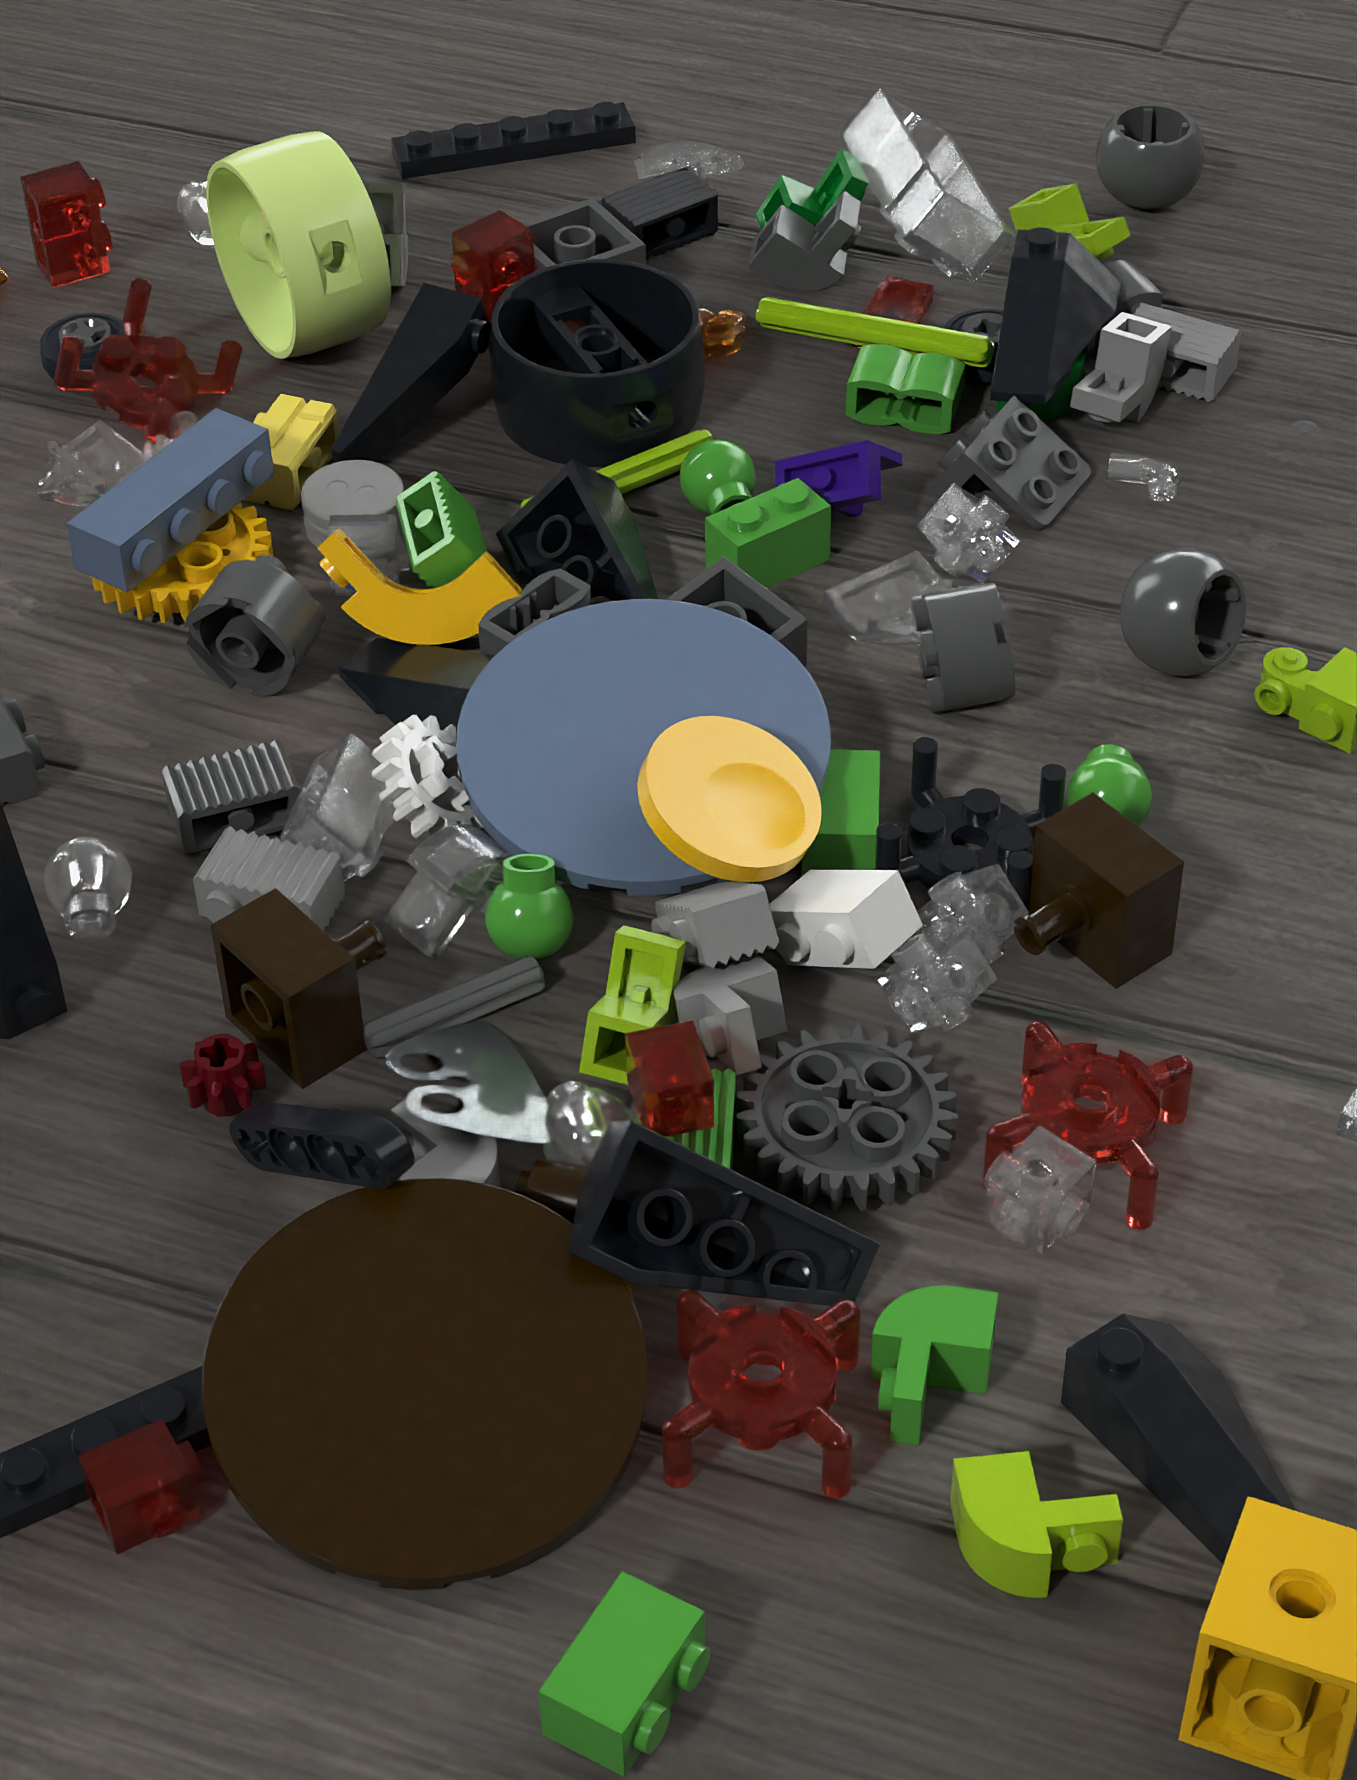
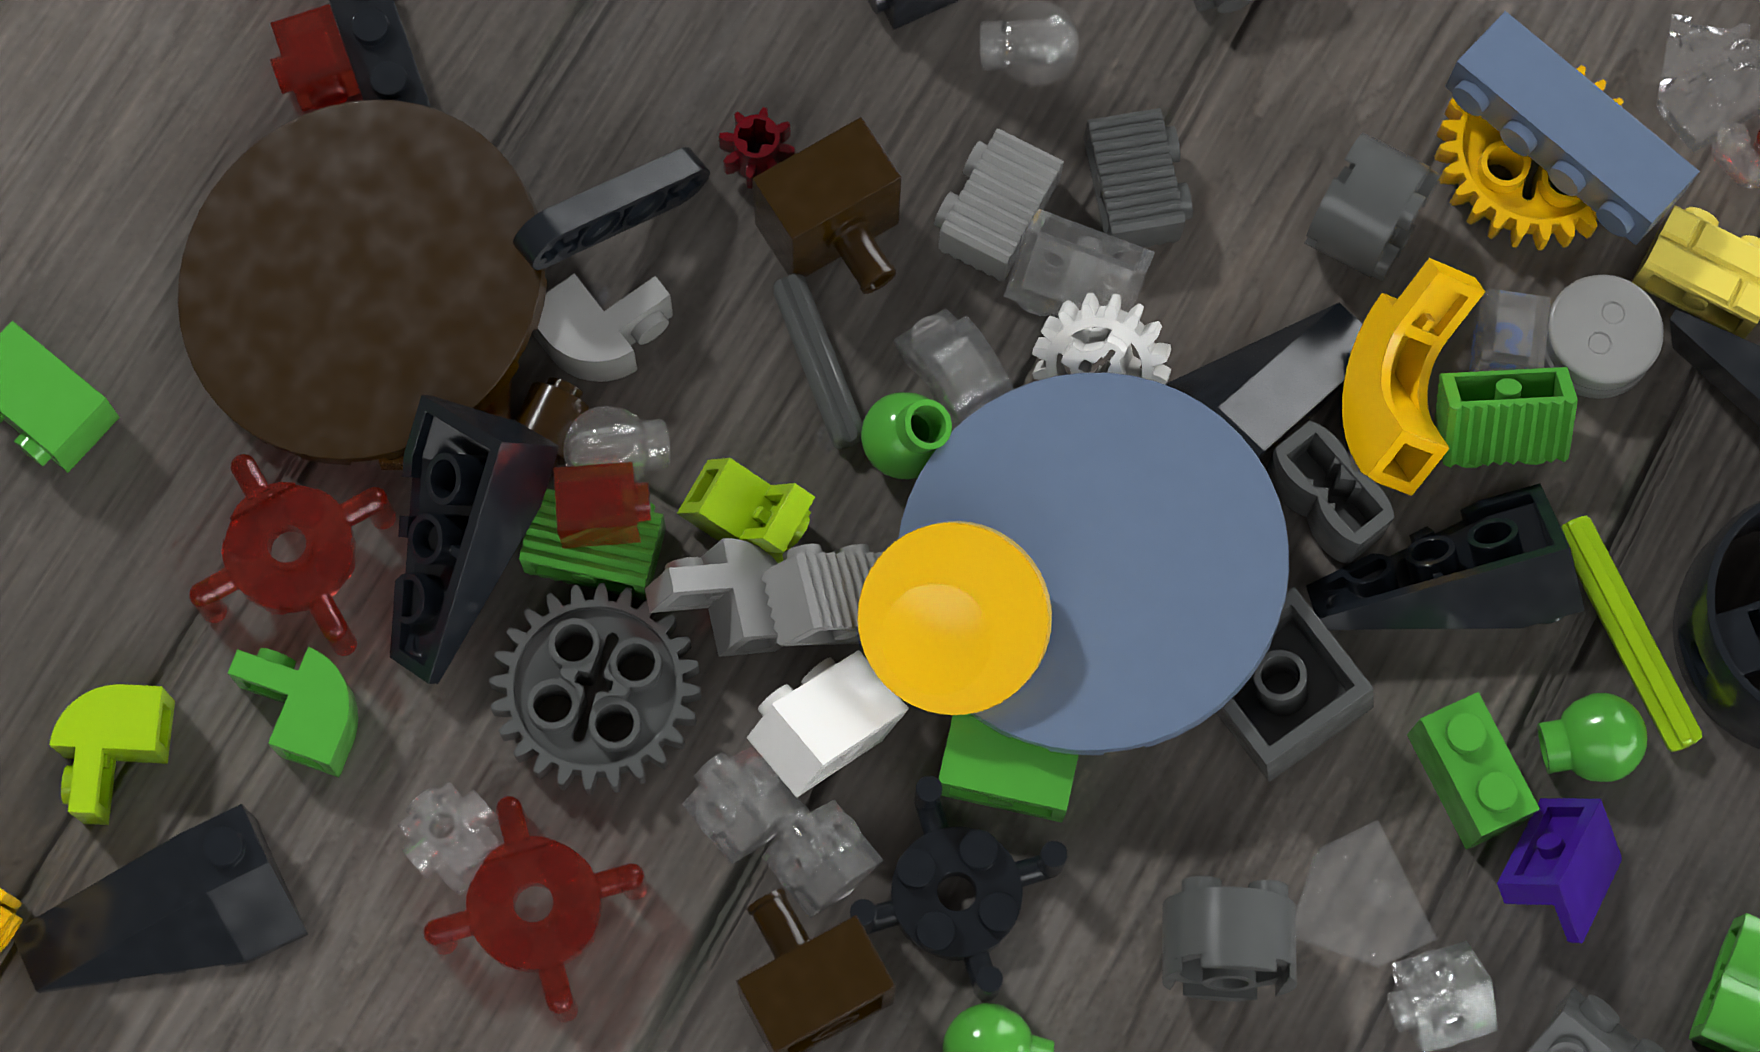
camera: 95 degrees right, 30 degrees up
(501, 1090) = (664, 381): clear piece -> none

